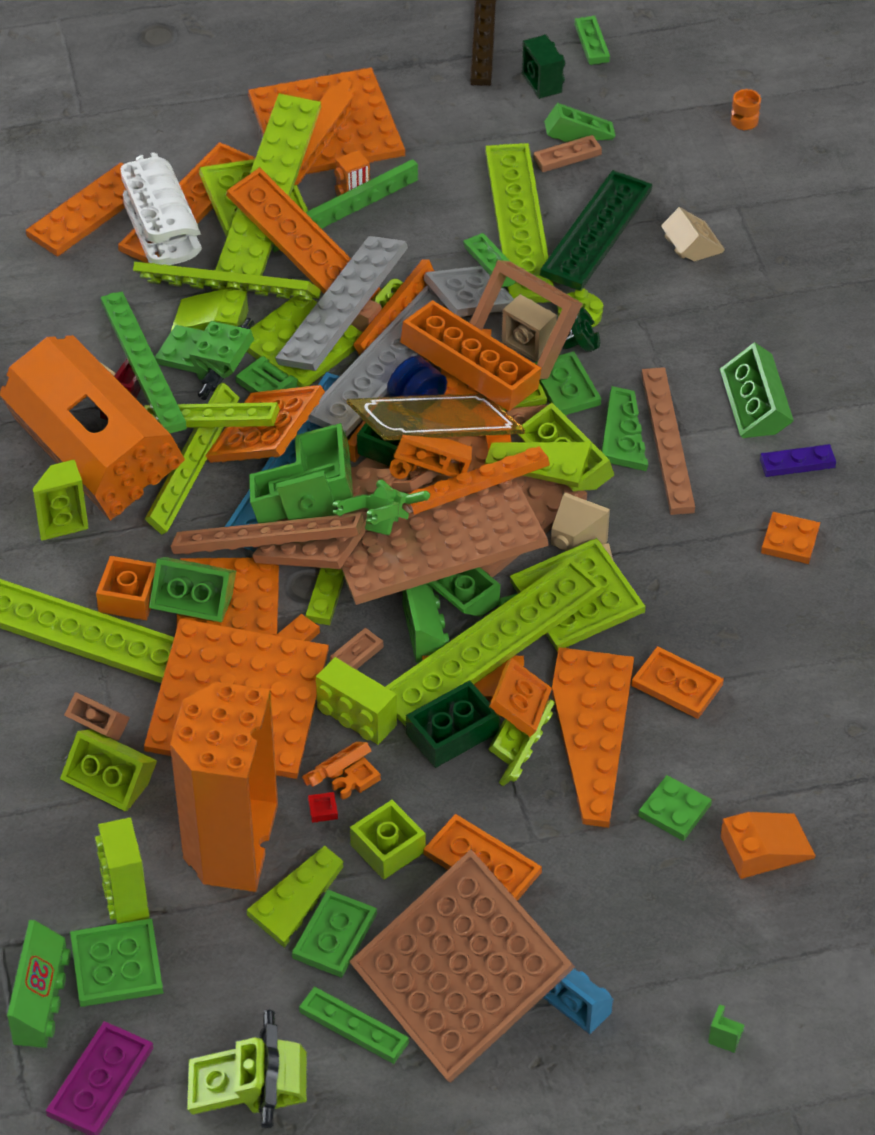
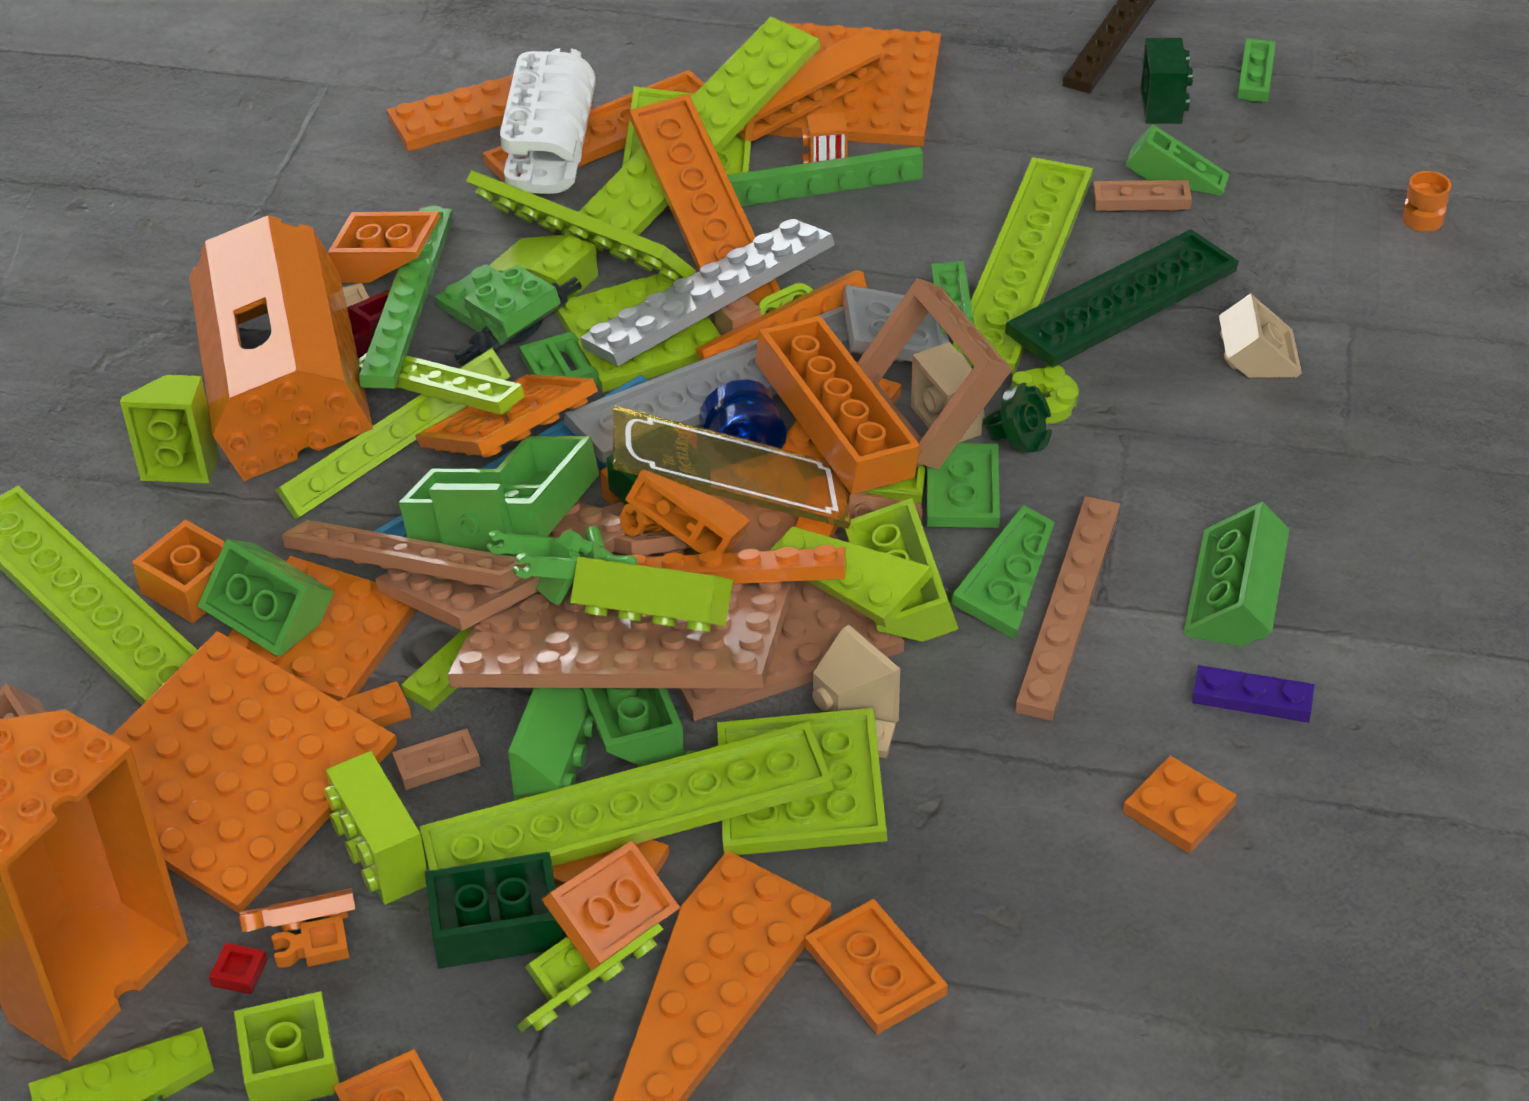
camera: 25 degrees right, 5 degrees down
(106, 327) = (380, 243): none -> orange slope
(451, 508) = (651, 591): none -> lime brick

